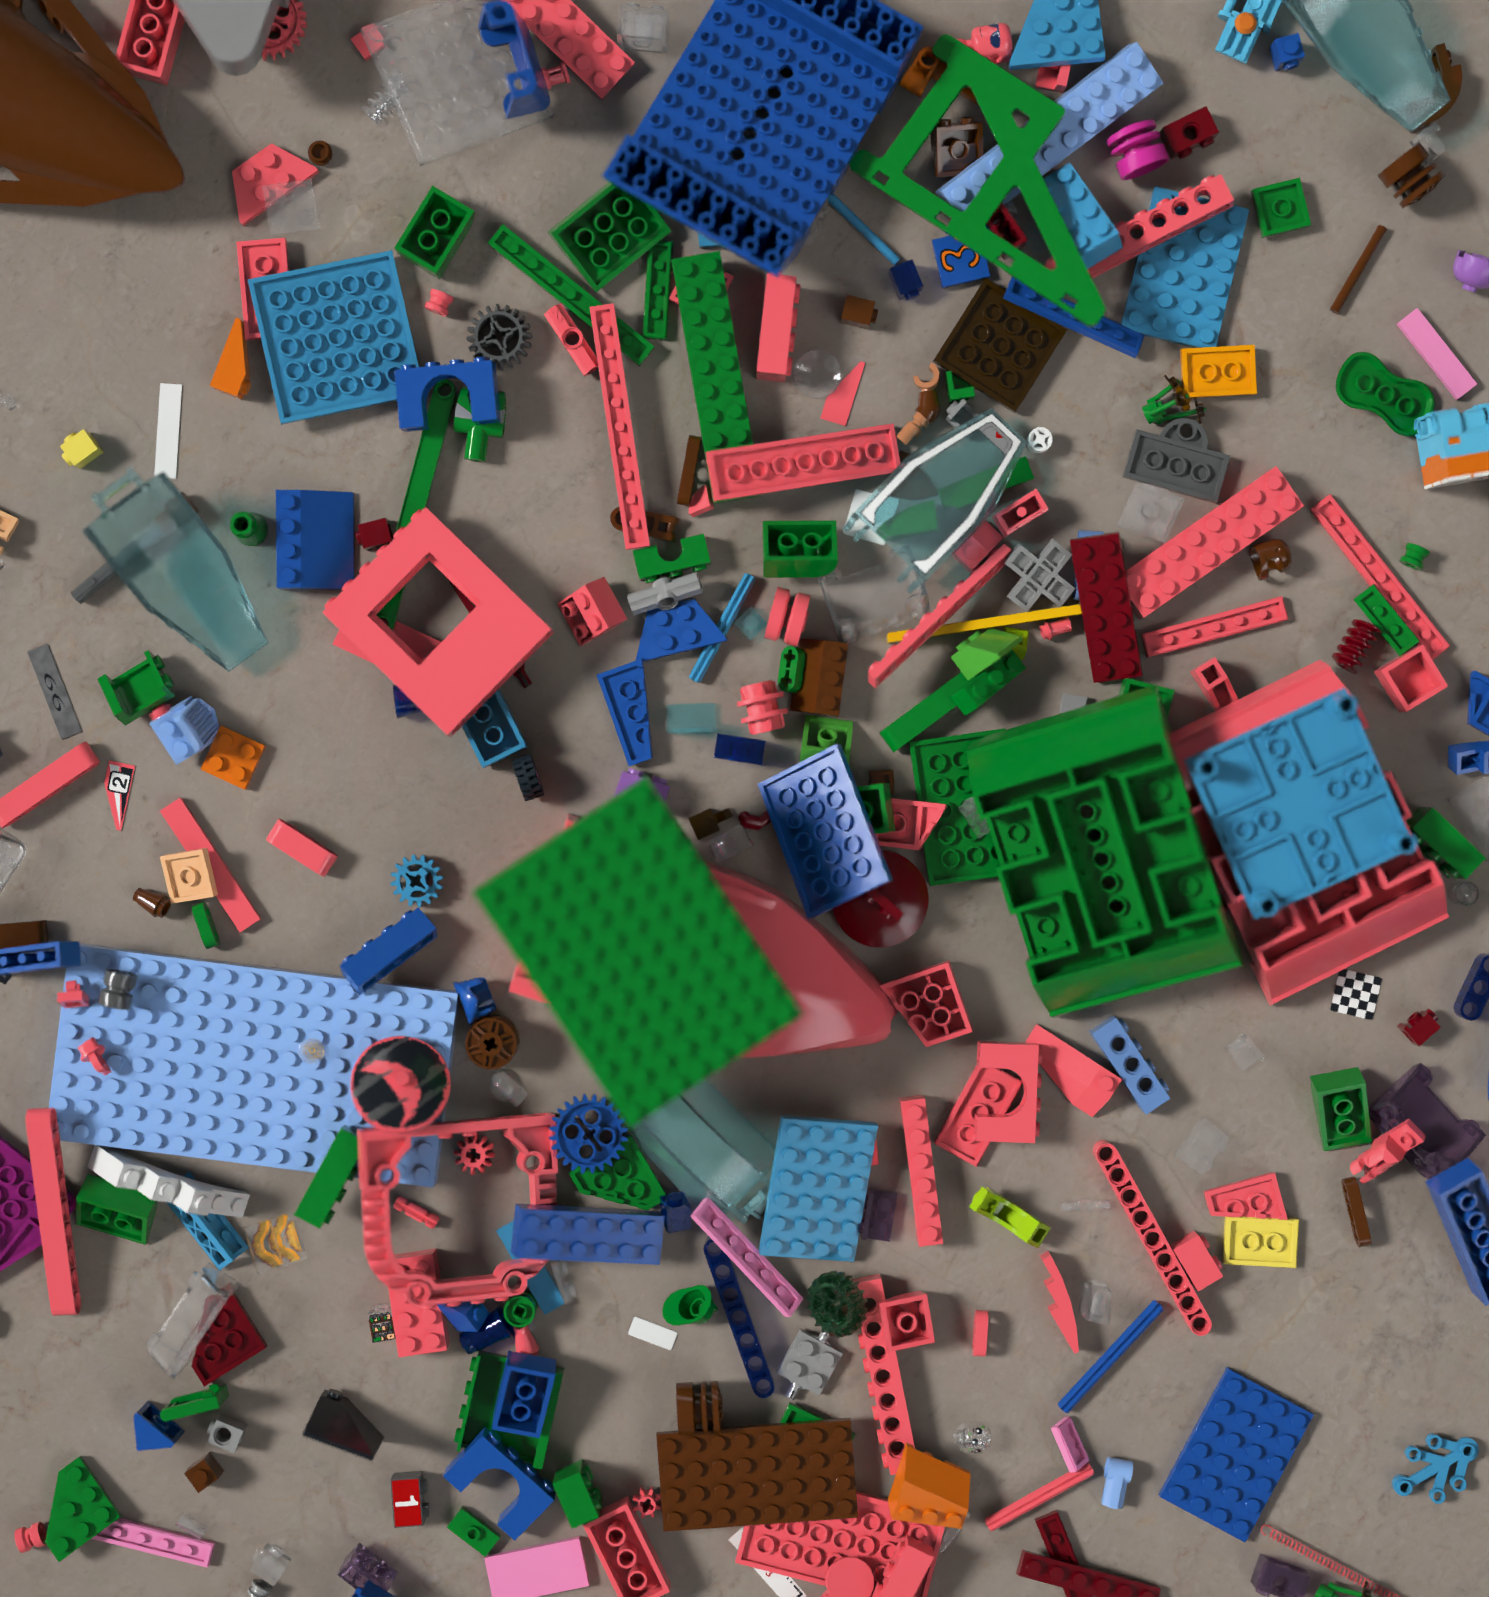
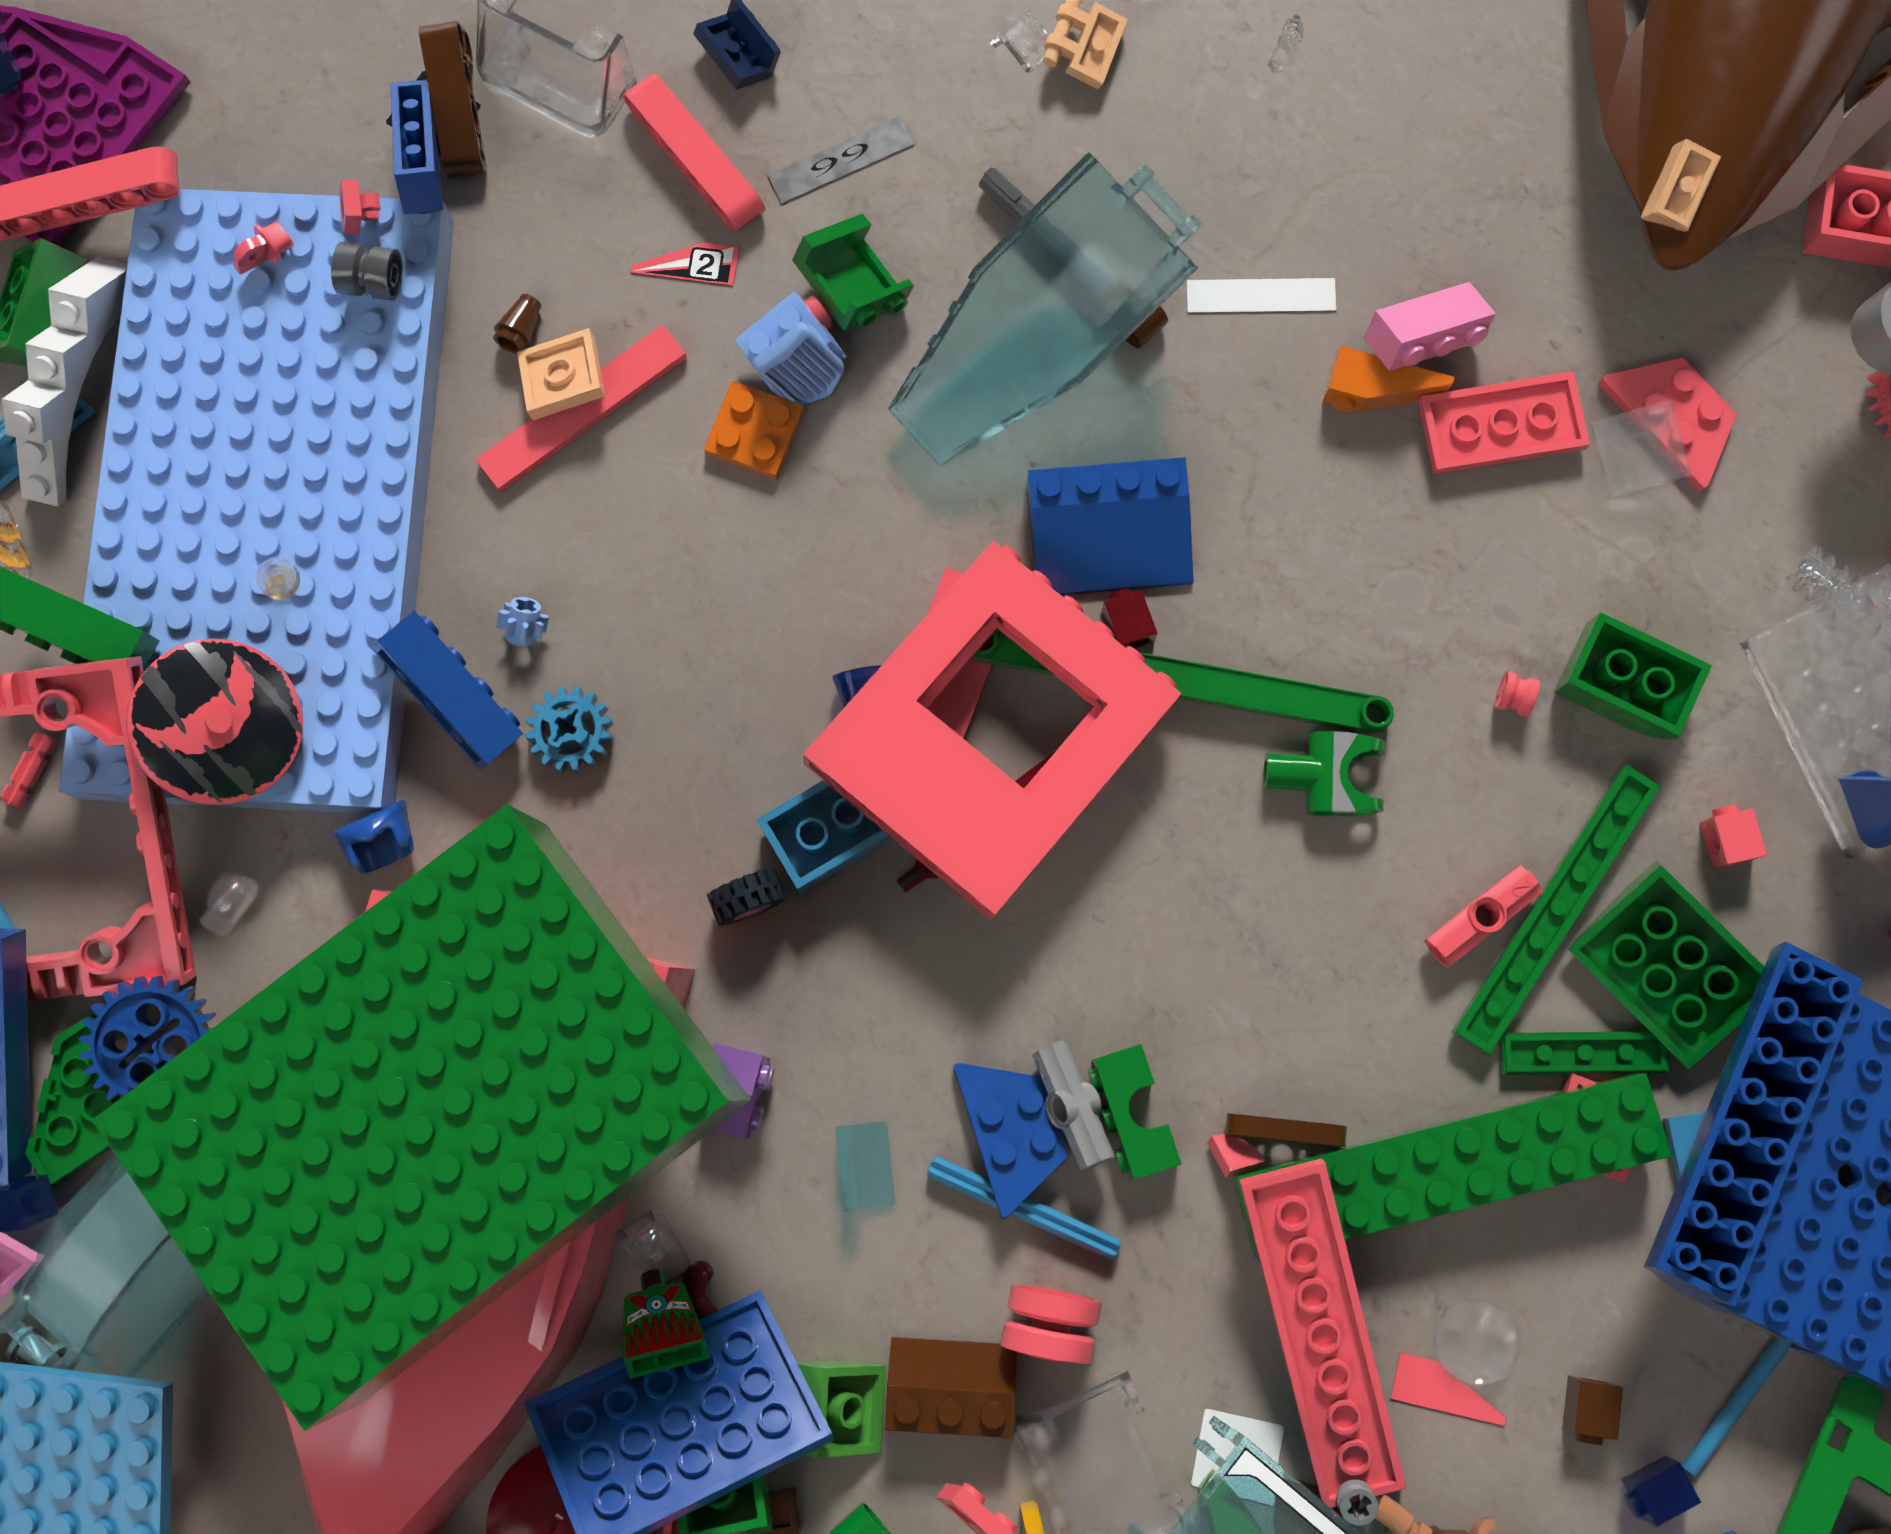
camera: 90 degrees right, 10 degrees down
(80, 449) = (1219, 166): light yellow brick -> none
(132, 167) = (1681, 185): none -> light nougat slope
(201, 328) = (1429, 326): none -> bright pink brick
(205, 925) = (484, 406): green beam -> none
(256, 530) = (1120, 424): green plant -> none
(301, 847) = (614, 544): coral beam -> none
(320, 153) = (1731, 490): reddish brown plate -> none
(333, 335) = (1441, 536): dark azure plate -> none
(347, 906) = (522, 621): none -> light blue gear
(415, 383) = (1382, 663): blue arch -> none
(467, 1158) = (108, 865): coral gear -> none
(506, 1038) = (326, 874): reddish brown wheel -> none
(510, 334) = (1478, 809): dark grey gear -> none
(536, 184) = (1732, 837): none -> coral brick
(592, 611) = (1033, 983): coral slope -> none
(619, 426) = (1347, 1006): coral plate -> none
(628, 706) = (879, 1056): blue wing -> none
(652, 524) = (1189, 1060): reddish brown plate -> none
(707, 822) = (688, 1206): dark brown plate -> none
(739, 749) = (817, 1255): clear blue brick -> none
(750, 623) = (1035, 1256): clear light blue plate -> none
(762, 707) = (890, 1290): coral piece -> none
(772, 838) = (660, 1327): none -> torso
(776, 327) = (1550, 1265): coral brick -> none
(791, 669) = (961, 1336): green beam -> none
(799, 548) = (1171, 1336): green brick -> none
(899, 444) = (1364, 1515): none -> light grey bush

